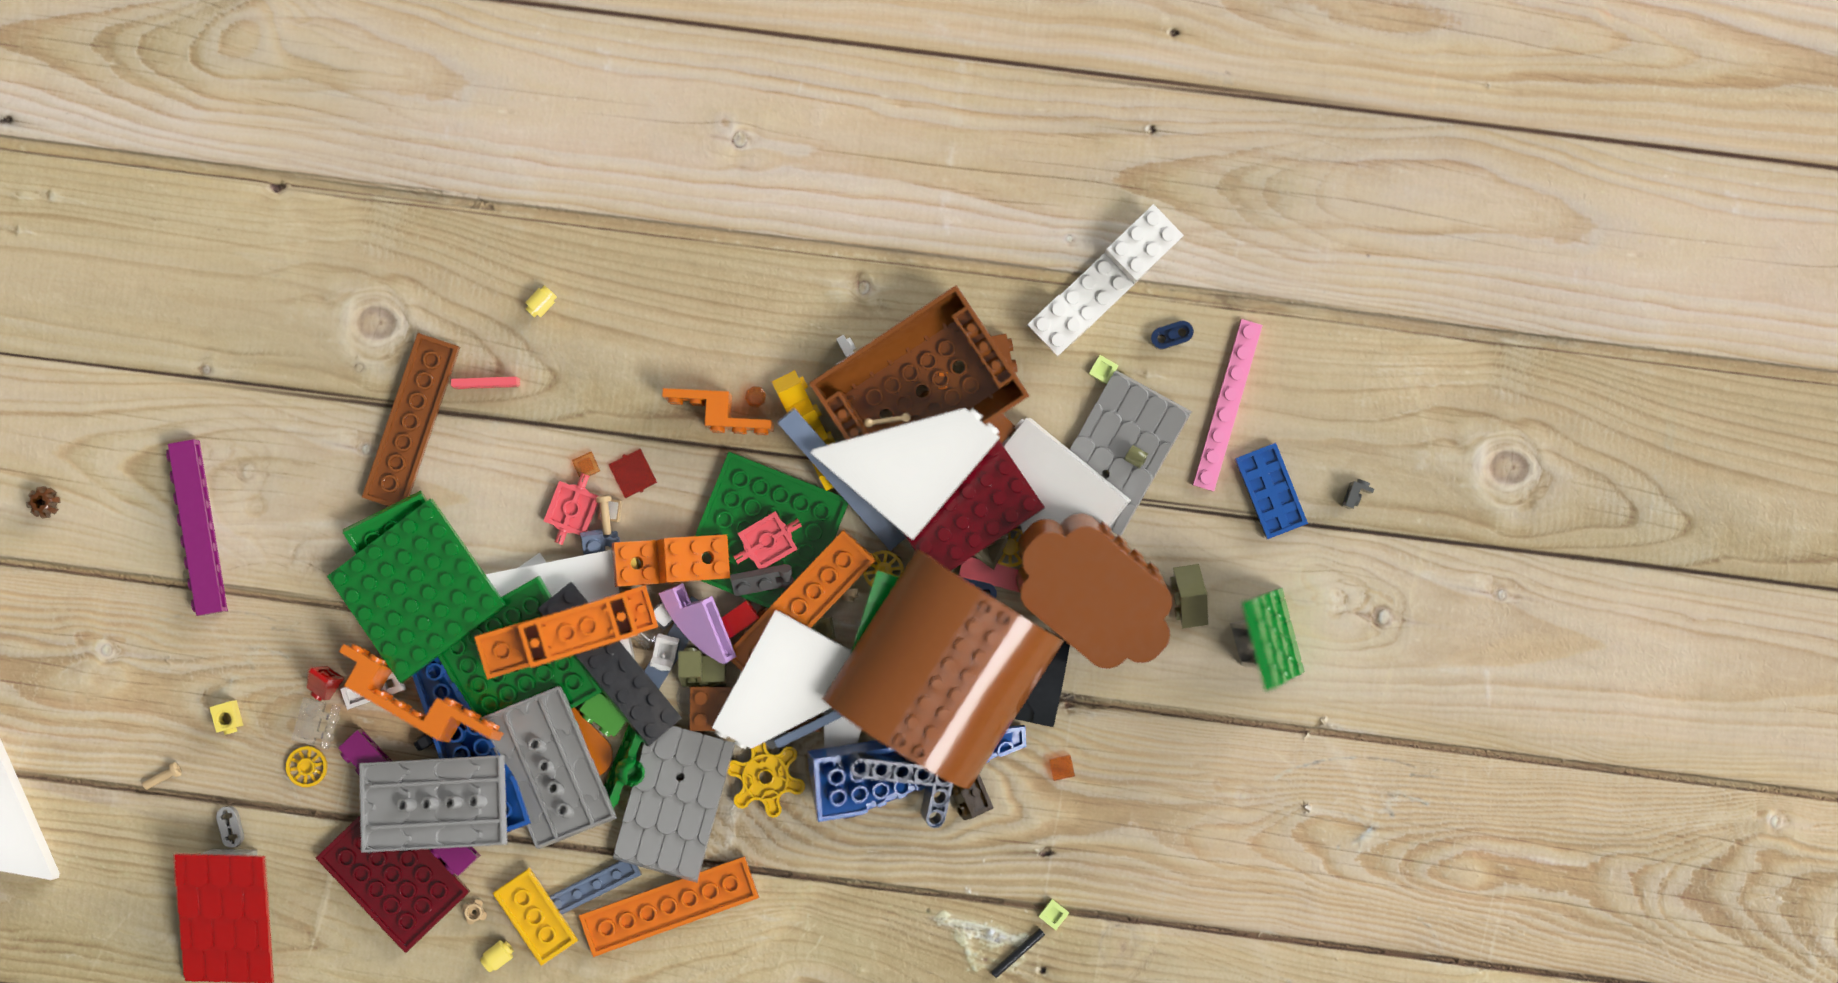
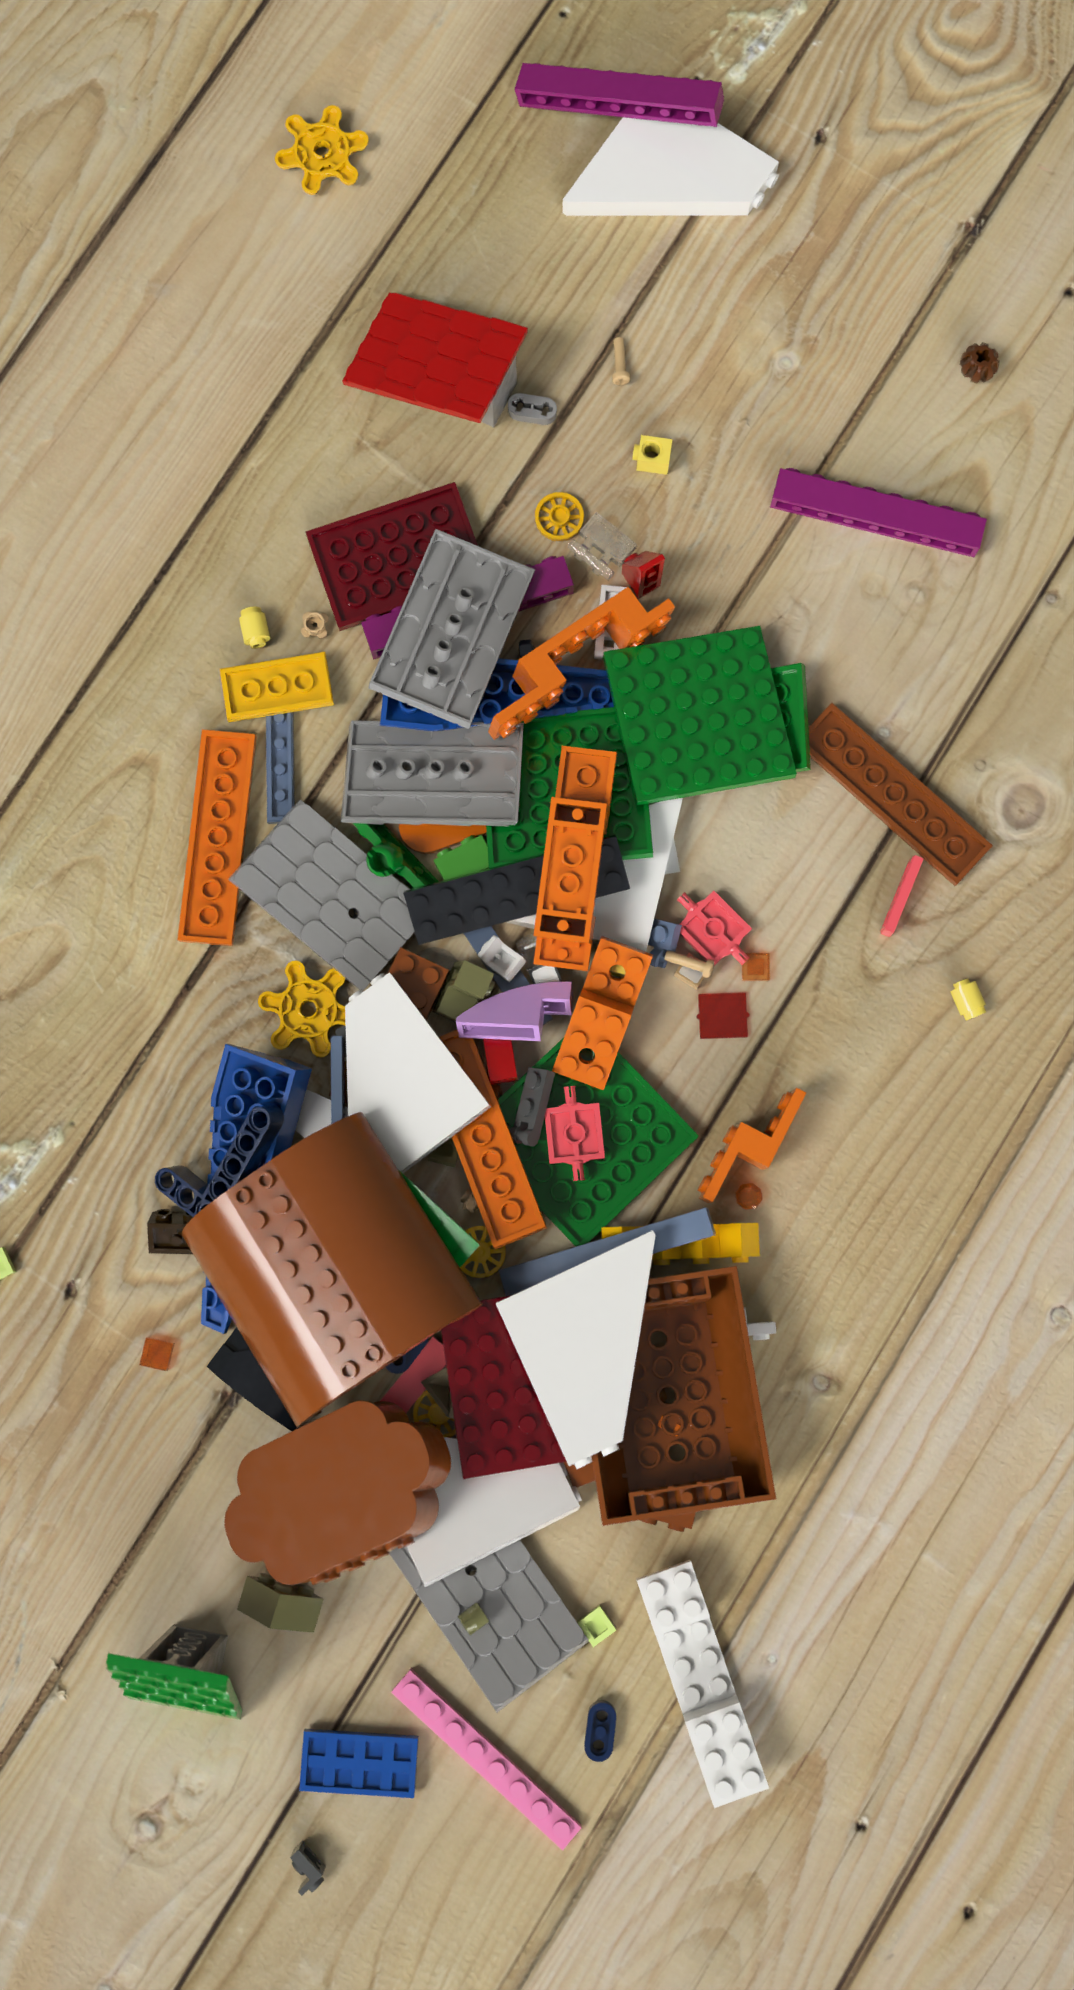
camera: 115 degrees right, 5 degrees down
(905, 417) = (644, 1361): tan hinge -> none

